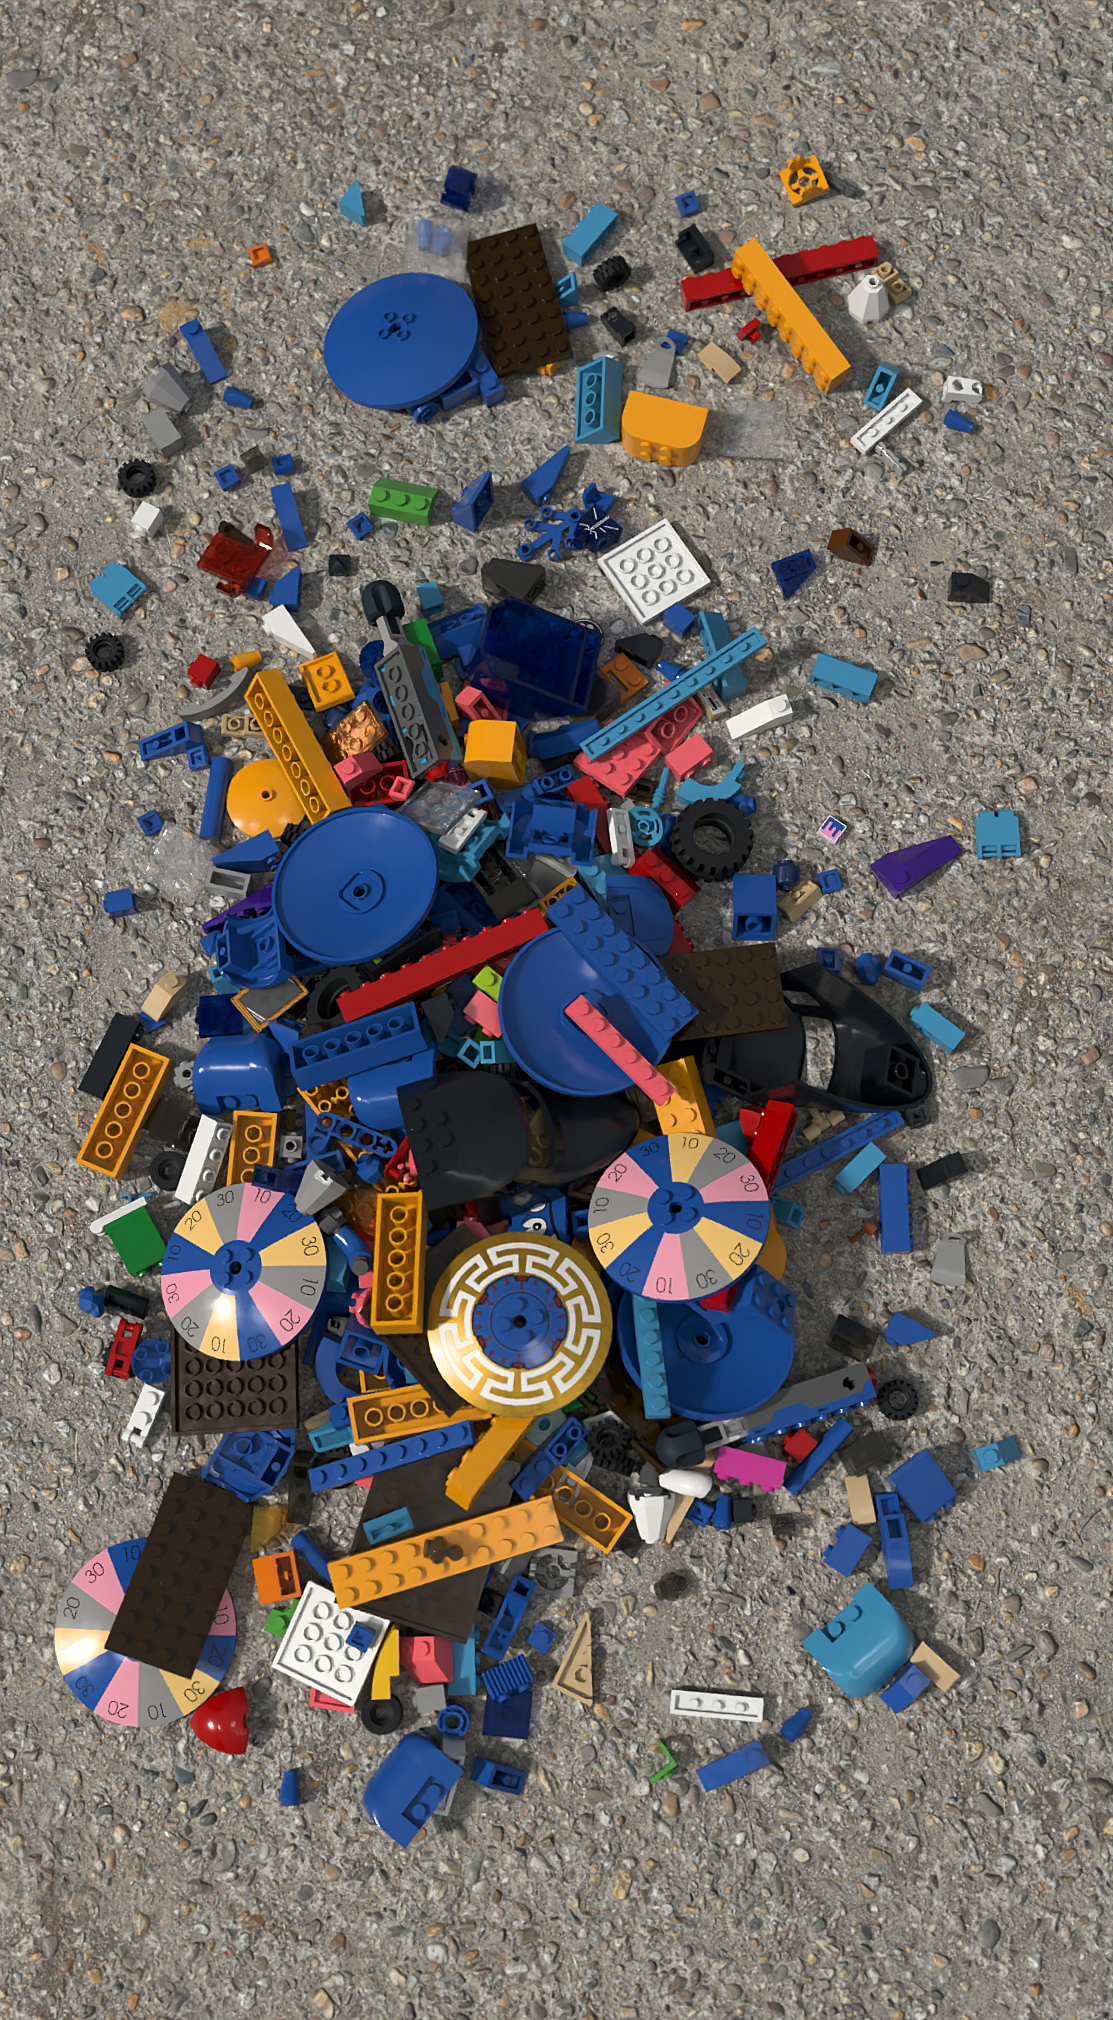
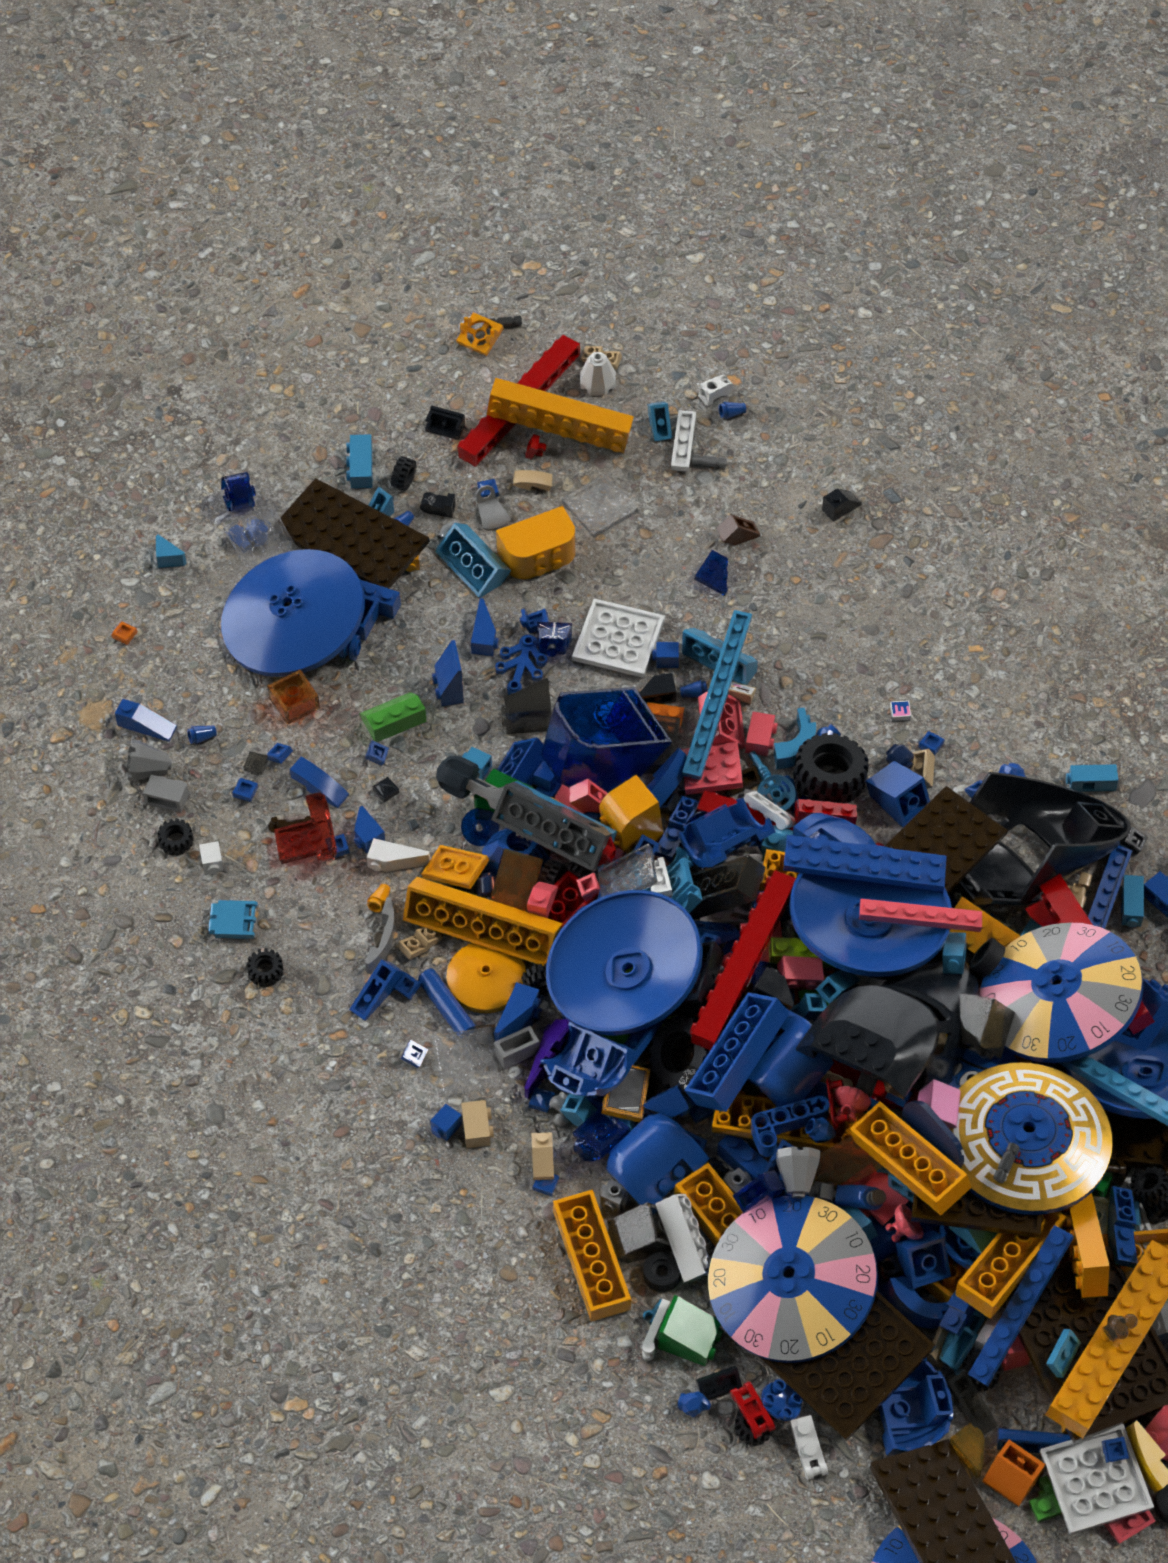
camera: 45 degrees left, 20 degrees down
(110, 1055) = (542, 1230): black brick -> none
(142, 924) = (476, 1124): none -> tan brick
(203, 672) = (354, 926): red brick -> none
(335, 421) = (293, 697): none -> clear orange brick
(435, 1259) = (933, 1129): none -> dark blue tile
(469, 1236) = (943, 1101): none -> bright pink slope
(469, 1337) = (1006, 1162): none -> dark grey axle
(581, 1193) = (984, 1025): none -> clear smoke slope
(626, 1106) = (954, 953): none -> dark azure brick
(654, 1130) = (987, 957): none -> black tyre
(687, 203) = (411, 399): blue tile -> none
(760, 717) = (784, 675): white slope -> none
(843, 677) = (814, 612): dark azure brick -> none
(906, 971) = (1039, 756): blue brick -> none
(911, 865) = (974, 694): dark purple wedge -> none
(997, 834) = (1010, 634): dark azure plate -> none

